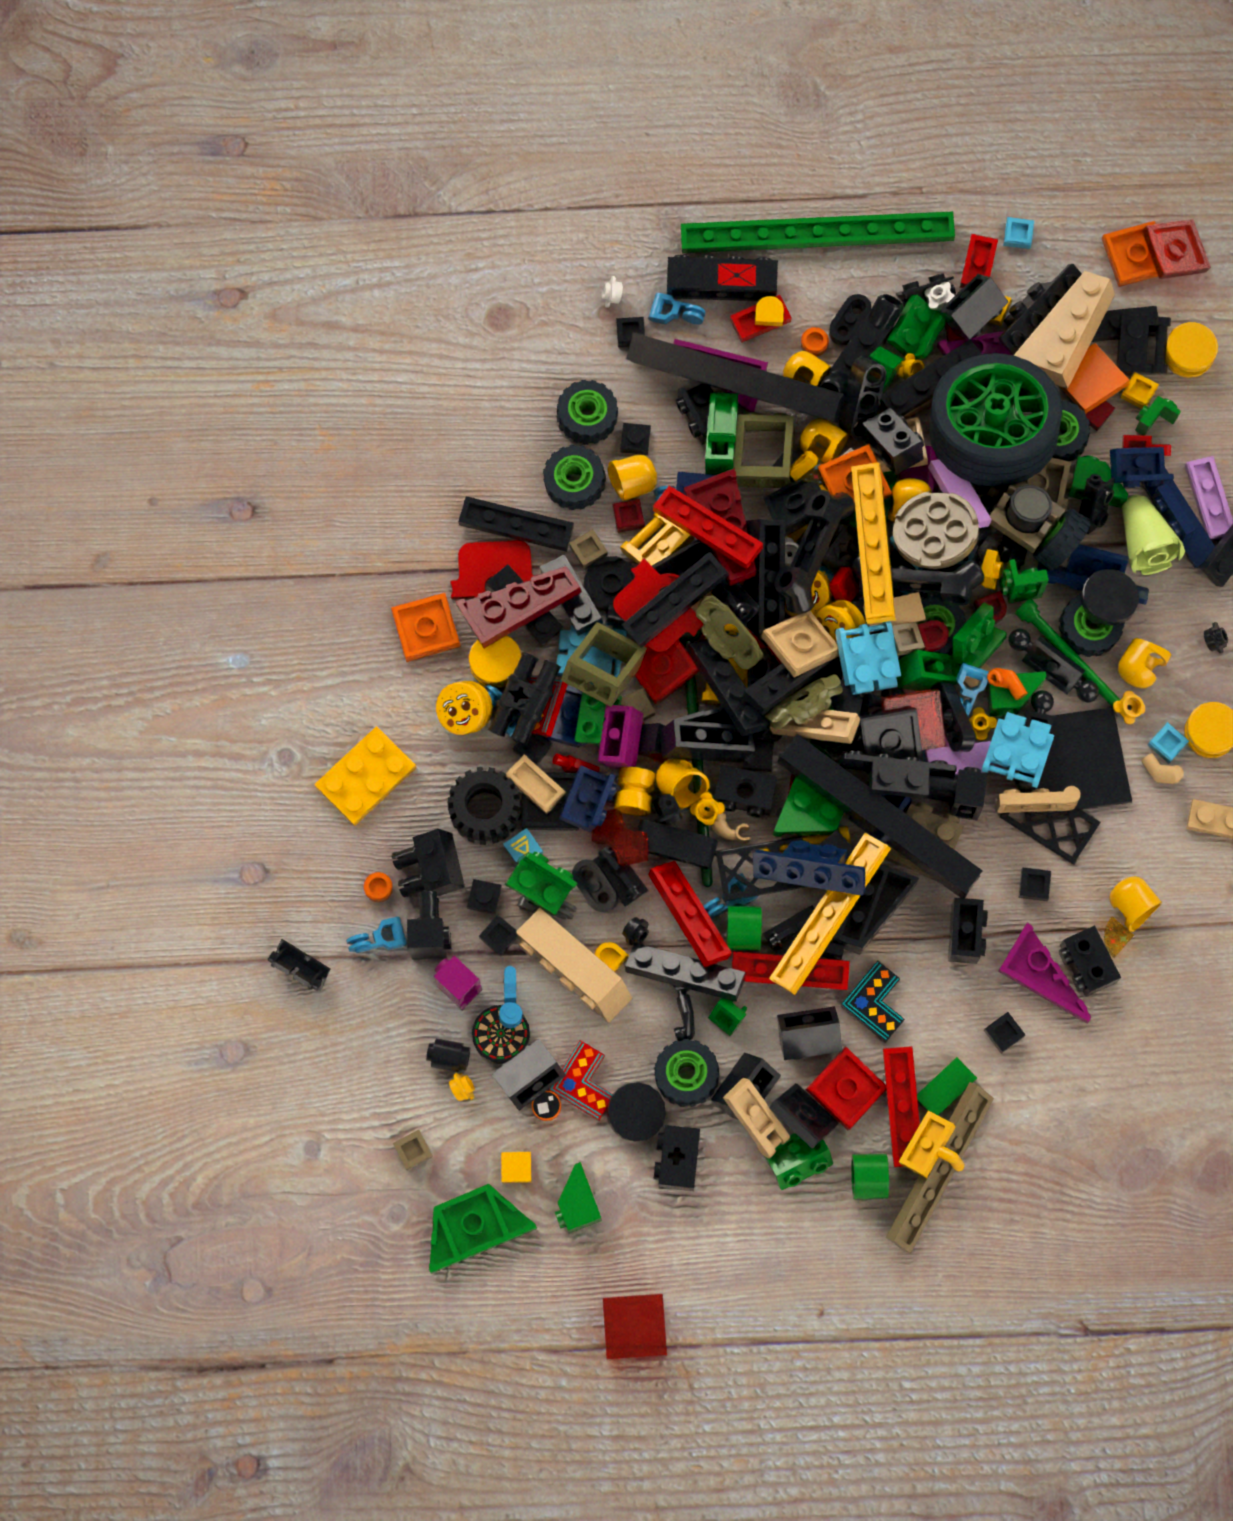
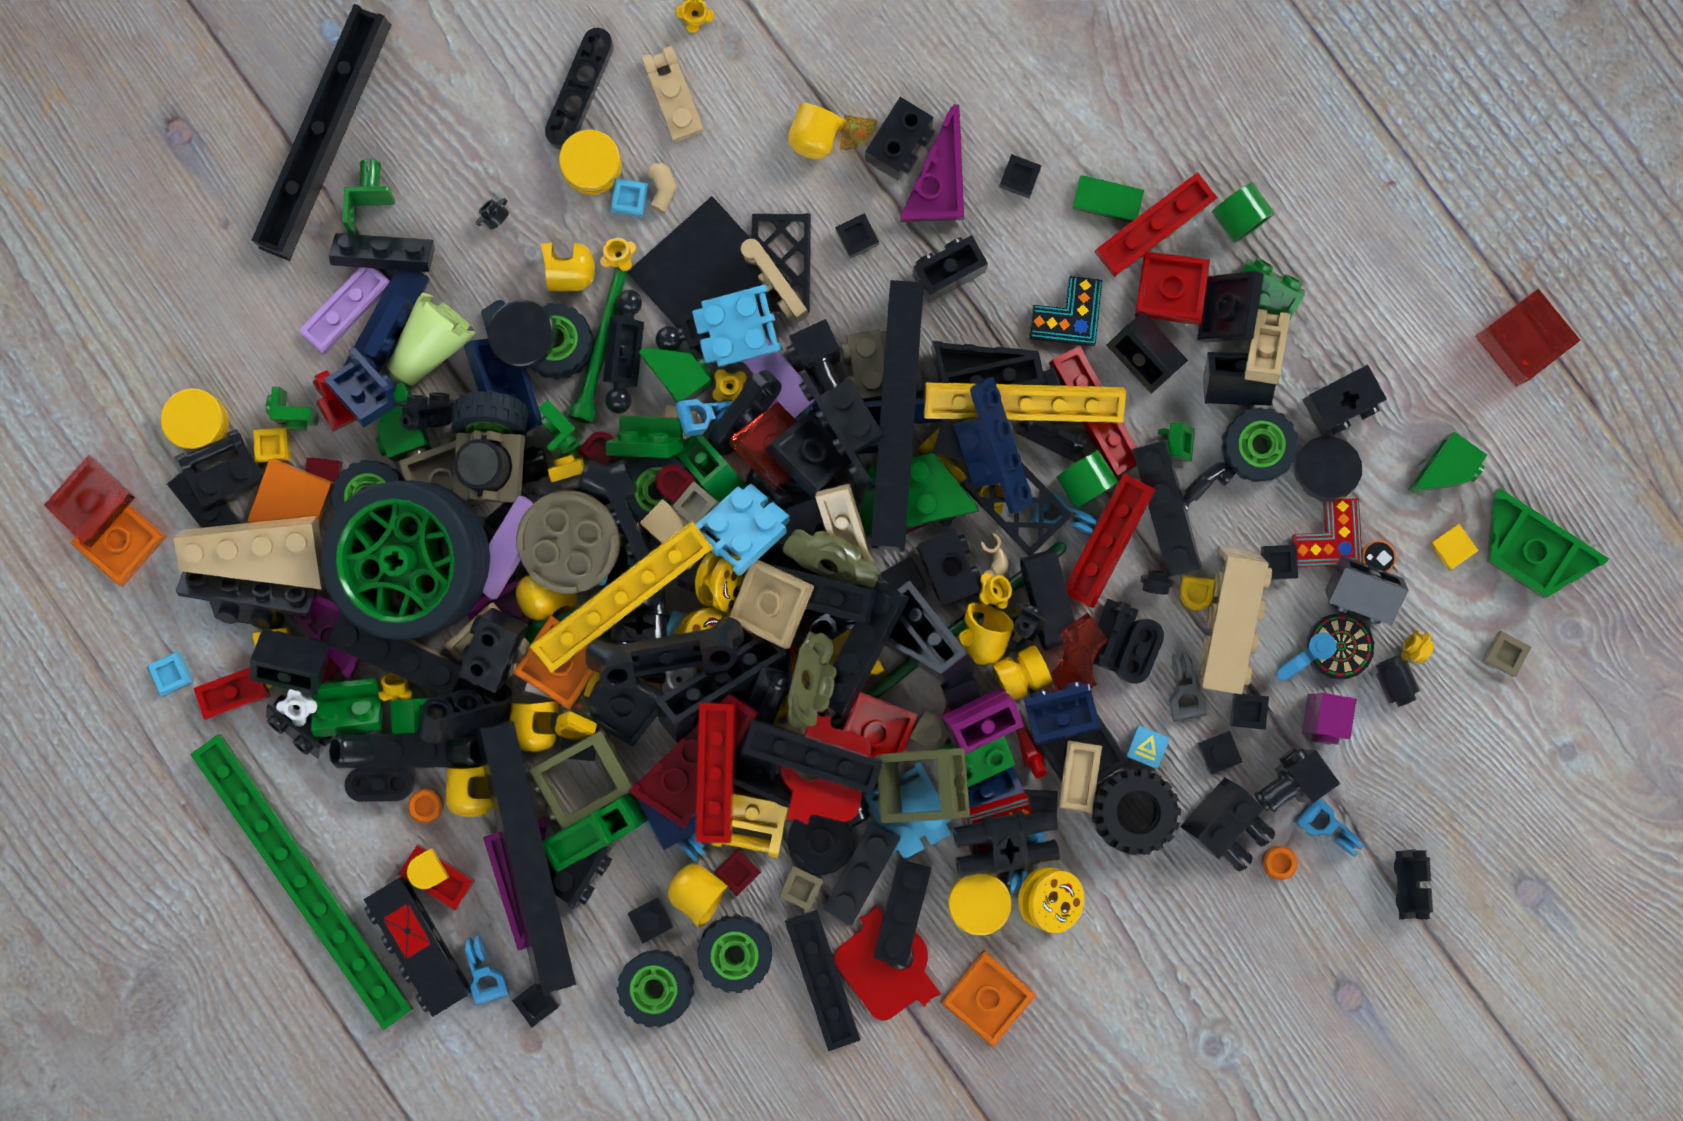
camera: 125 degrees left, 10 degrees up
(365, 776) = (1179, 952): yellow plate -> none
(508, 609) = (924, 923): wing -> none
(541, 882) = (1179, 702): green bracket -> none
(591, 1029) = (1281, 560): none -> black plate
(612, 292) = (505, 1051): white plate -> none
(844, 585) = (678, 603): red plate -> none
(928, 1191) = (1188, 156): dark tan plate -> none
(930, 1144) = (1181, 173): yellow plate -> none
(1007, 679) = (673, 381): orange arm -> none

